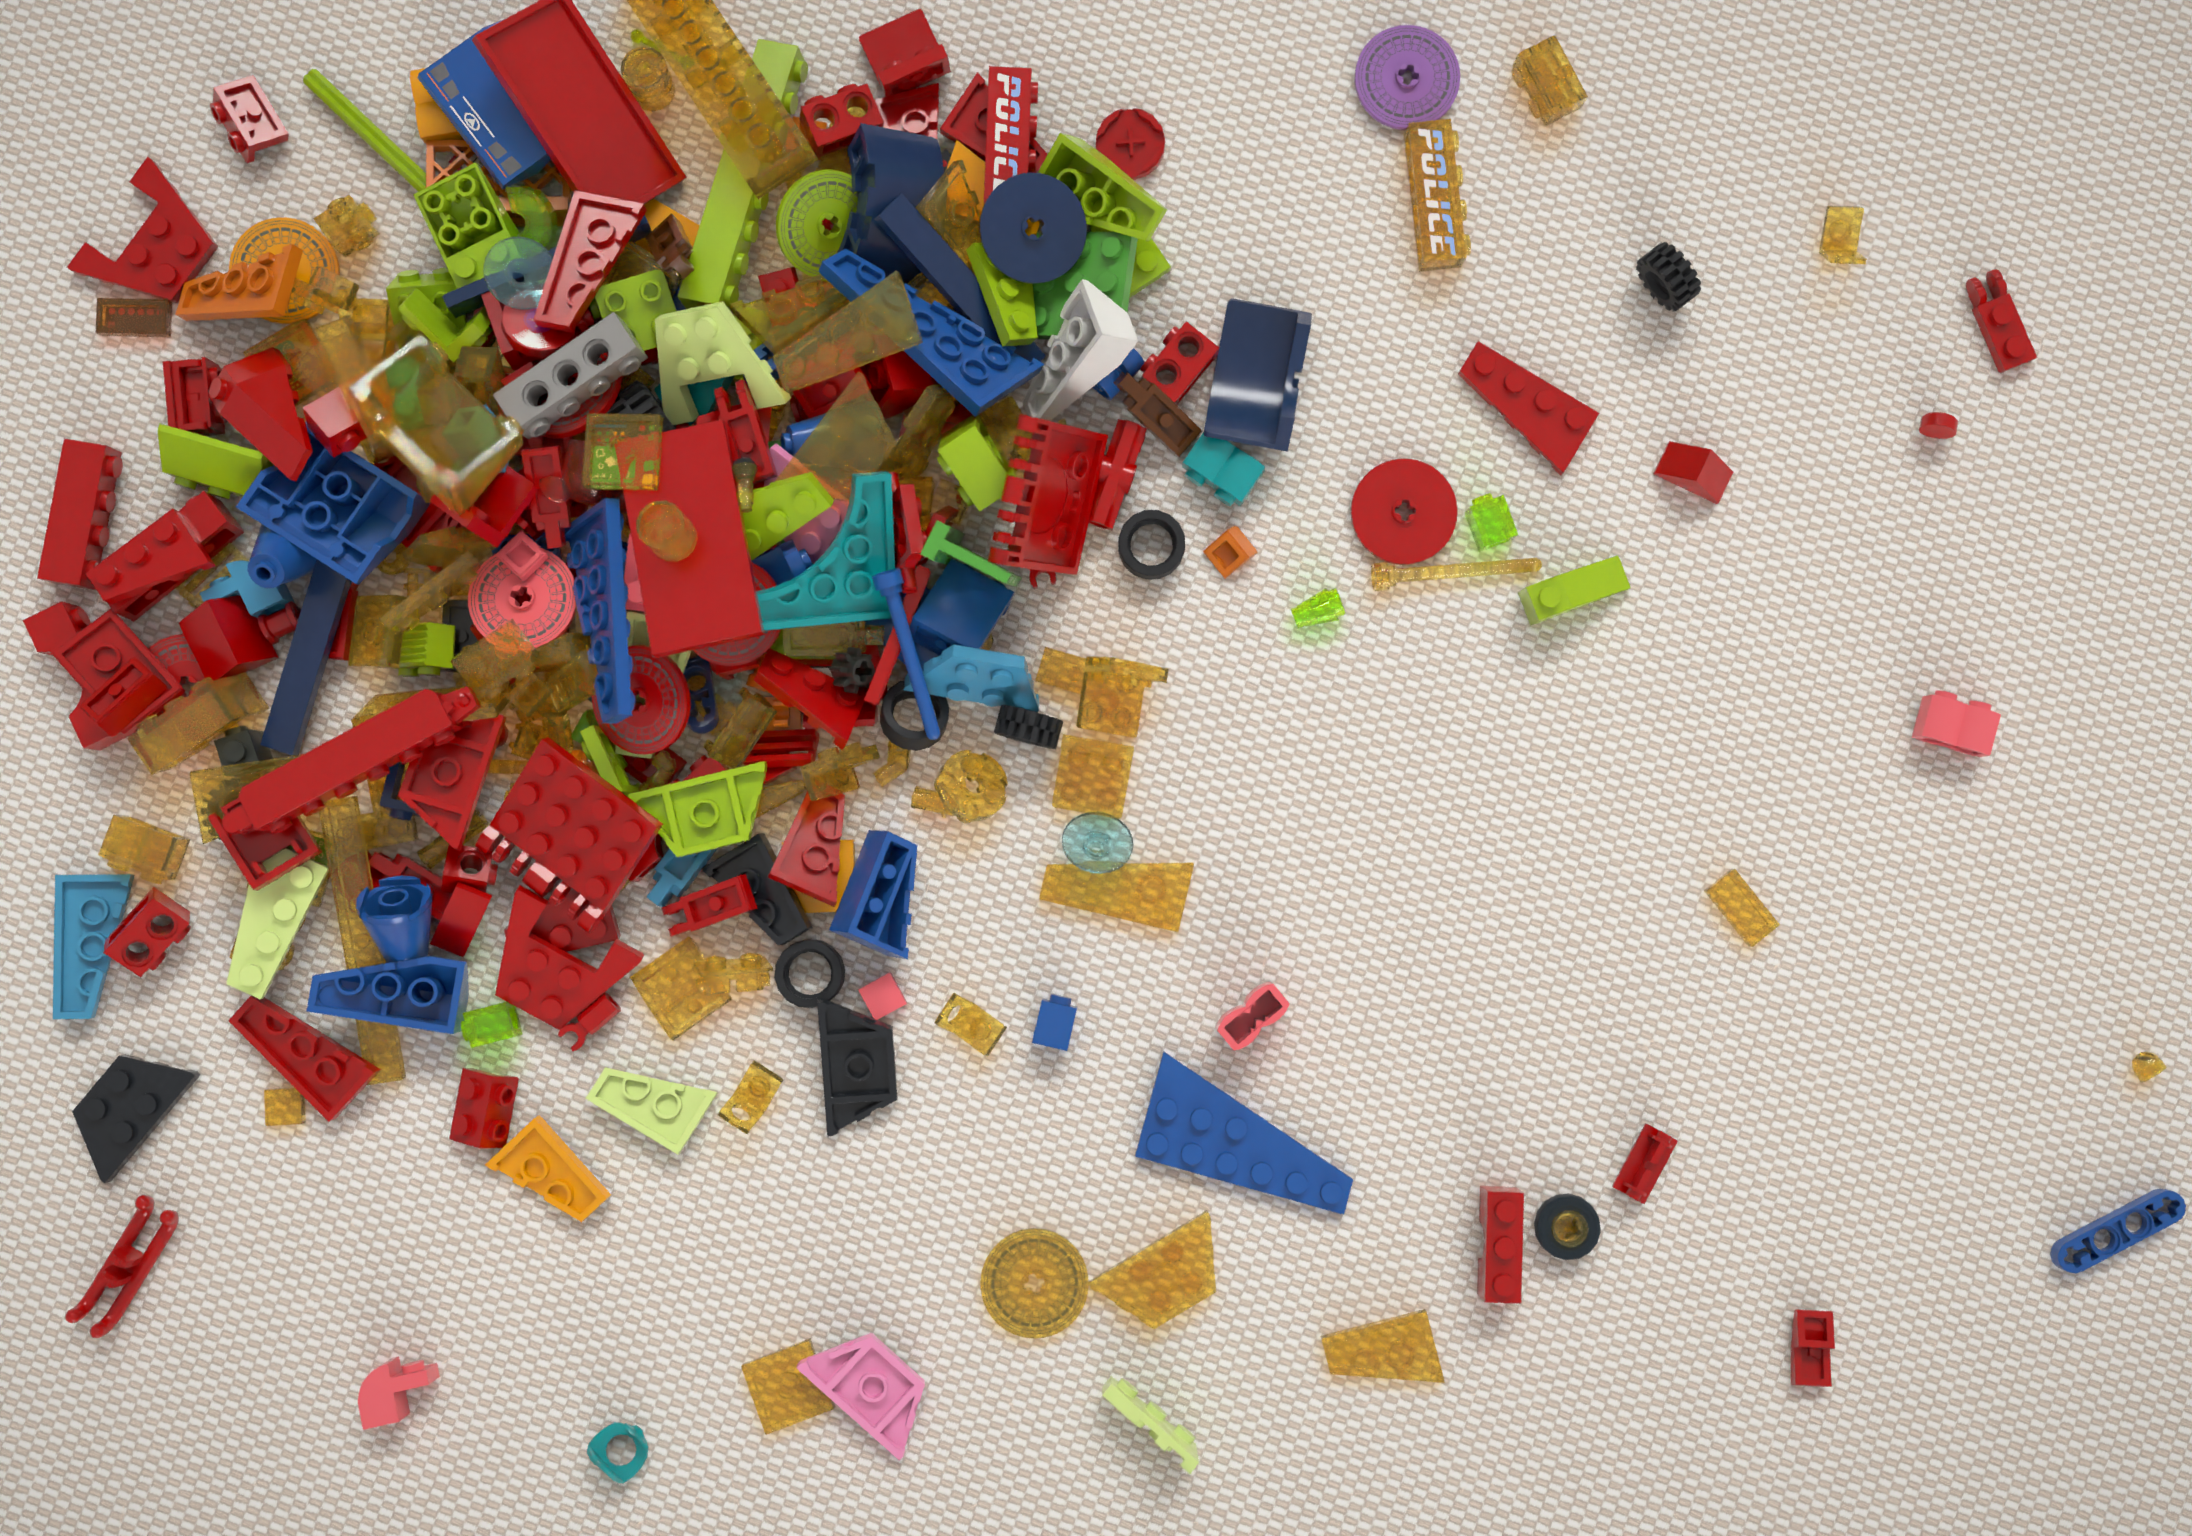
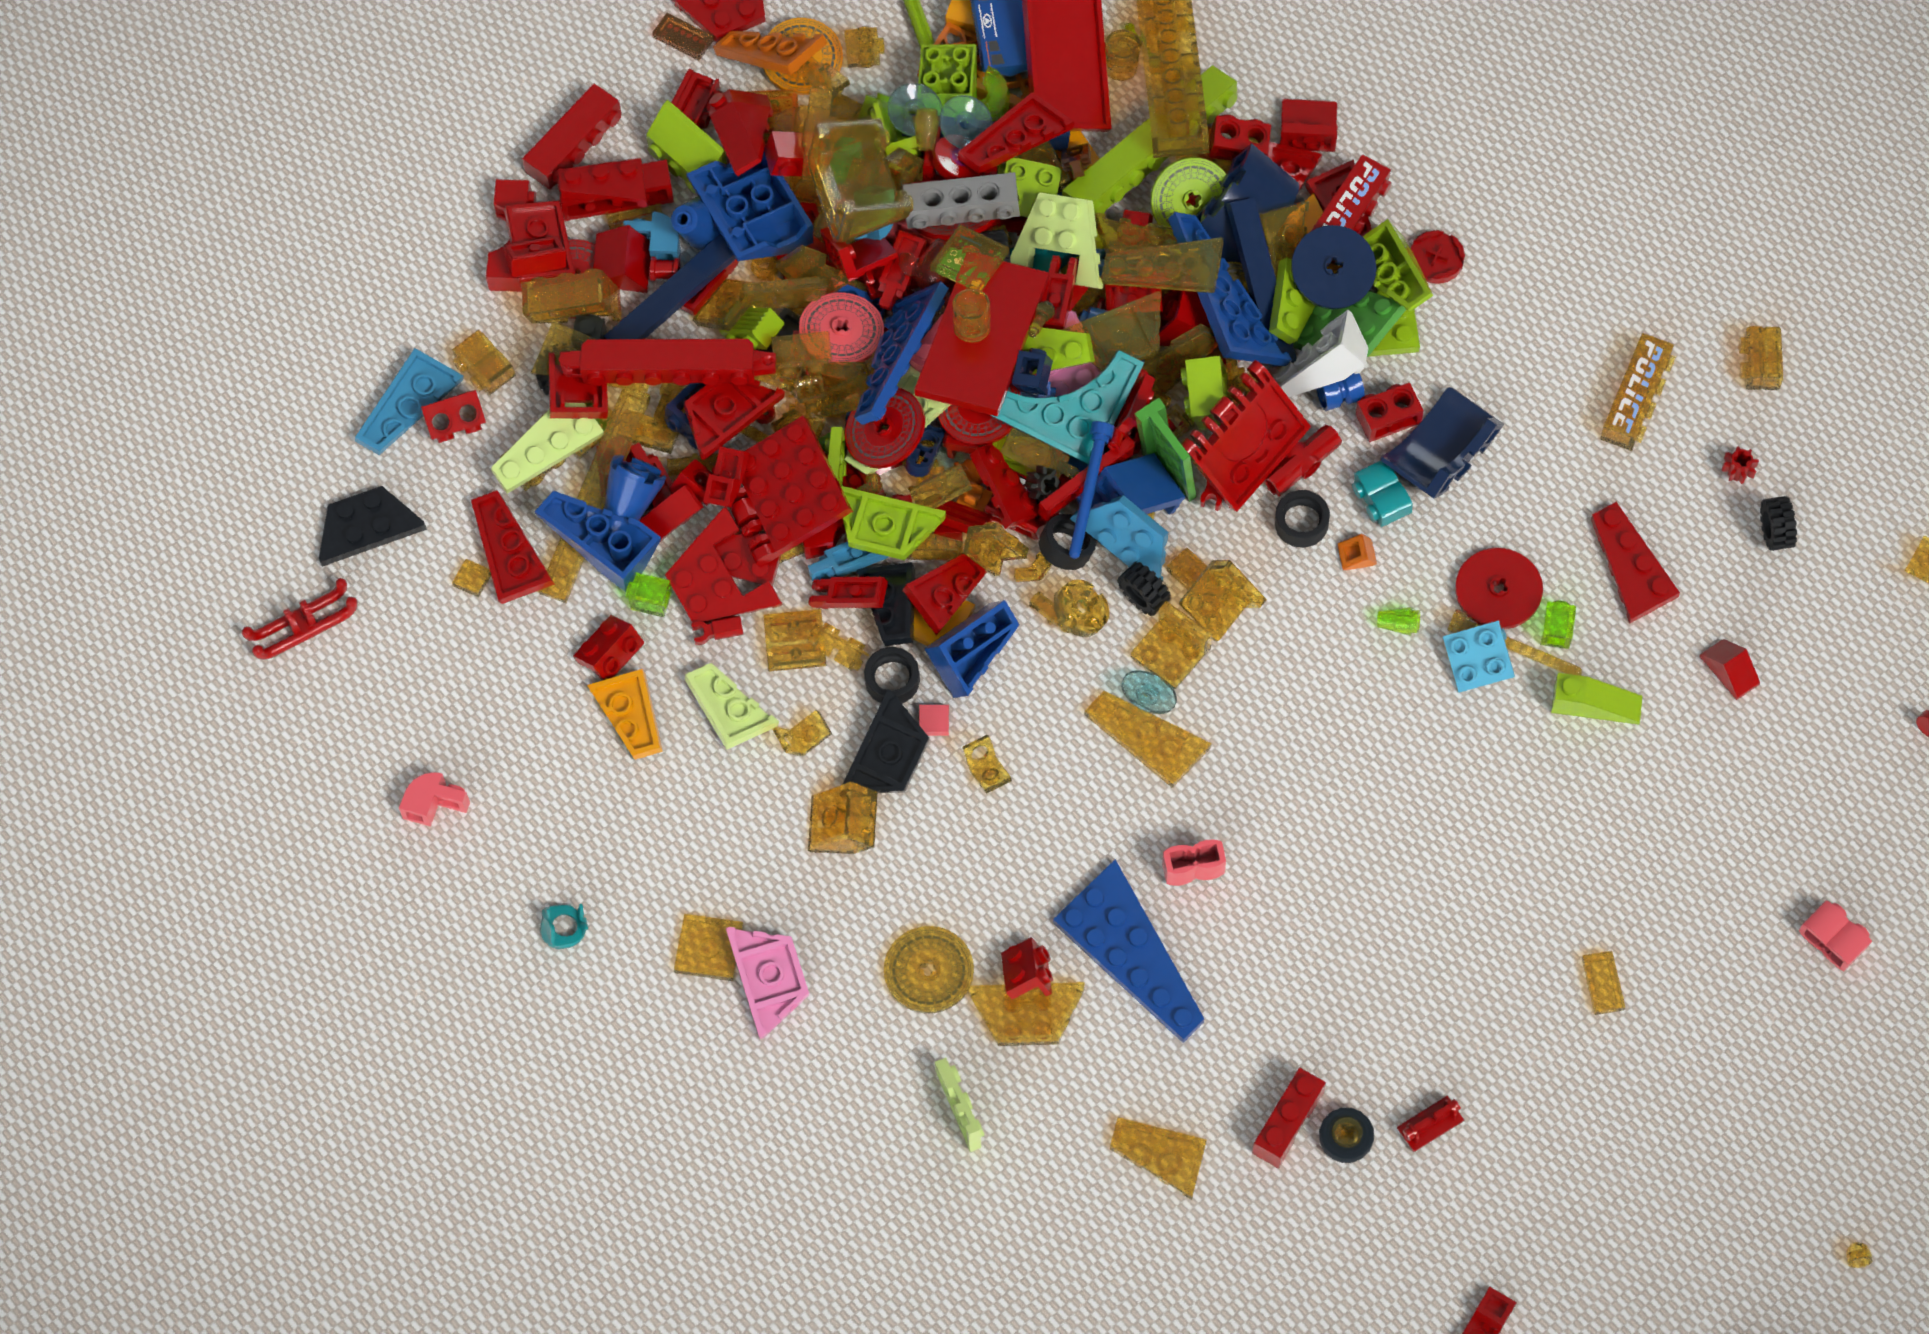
camera: 30 degrees right, 20 degrees down
(450, 271) = (908, 98): none -> clear light blue dish
(479, 308) = (926, 127): none -> clear yellow cone
(500, 857) = (727, 477): none -> red slope
(522, 556) = (857, 301): coral tile -> none
(763, 562) = (1025, 365): none -> dark blue brick
(851, 1169) = (843, 820): none -> clear yellow slope
(1055, 1022) = (1047, 798): blue brick -> none
(1141, 1235) = (1026, 968): none -> red bracket
(1158, 413) = (1355, 433): reddish brown hinge -> none
(1381, 81) = (1659, 289): medium lavender piece -> none
(1428, 609) = (1479, 656): none -> medium azure hinge
(1589, 215) = (1740, 465): none -> red gear

